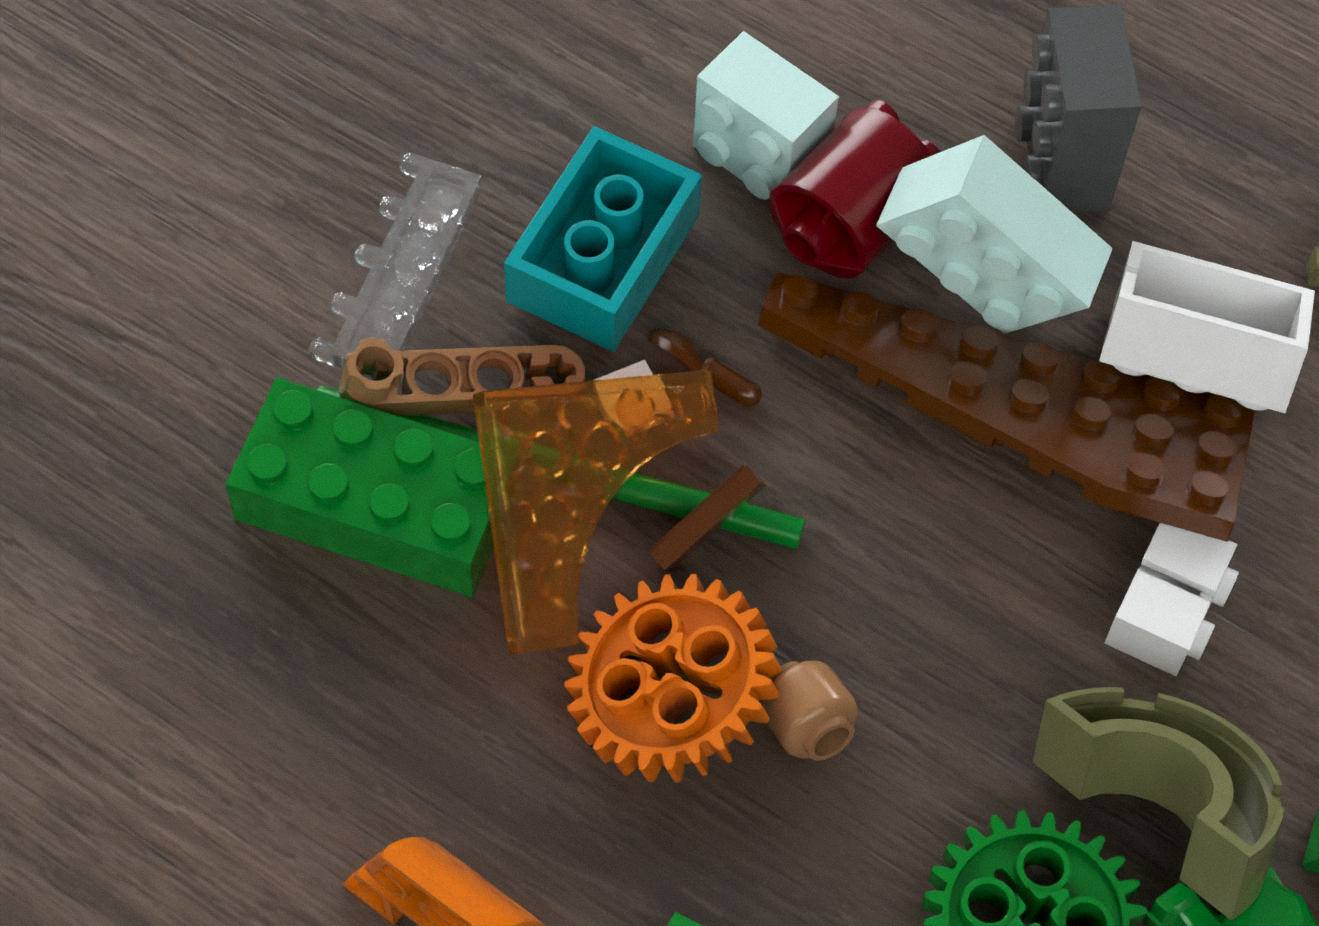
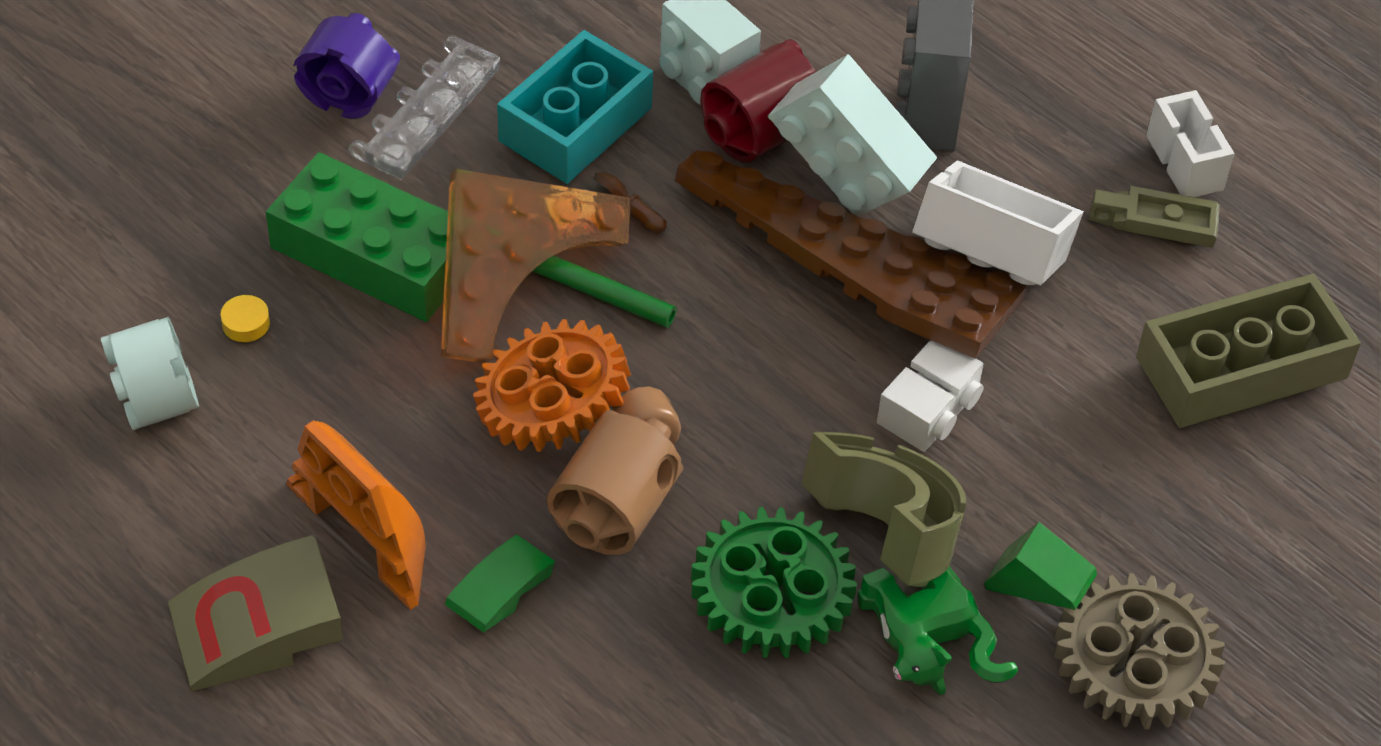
camera: 10 degrees right, 10 degrees down
(124, 763) = (150, 373): none -> light aqua brick
(227, 640) = (245, 318): none -> yellow tile
(279, 230) = (345, 65): none -> dark purple brick
(458, 367) = (389, 157): medium nougat beam -> none
(706, 518) = (602, 288): reddish brown tile -> none
(796, 821) = (615, 483): none -> medium nougat cylinder

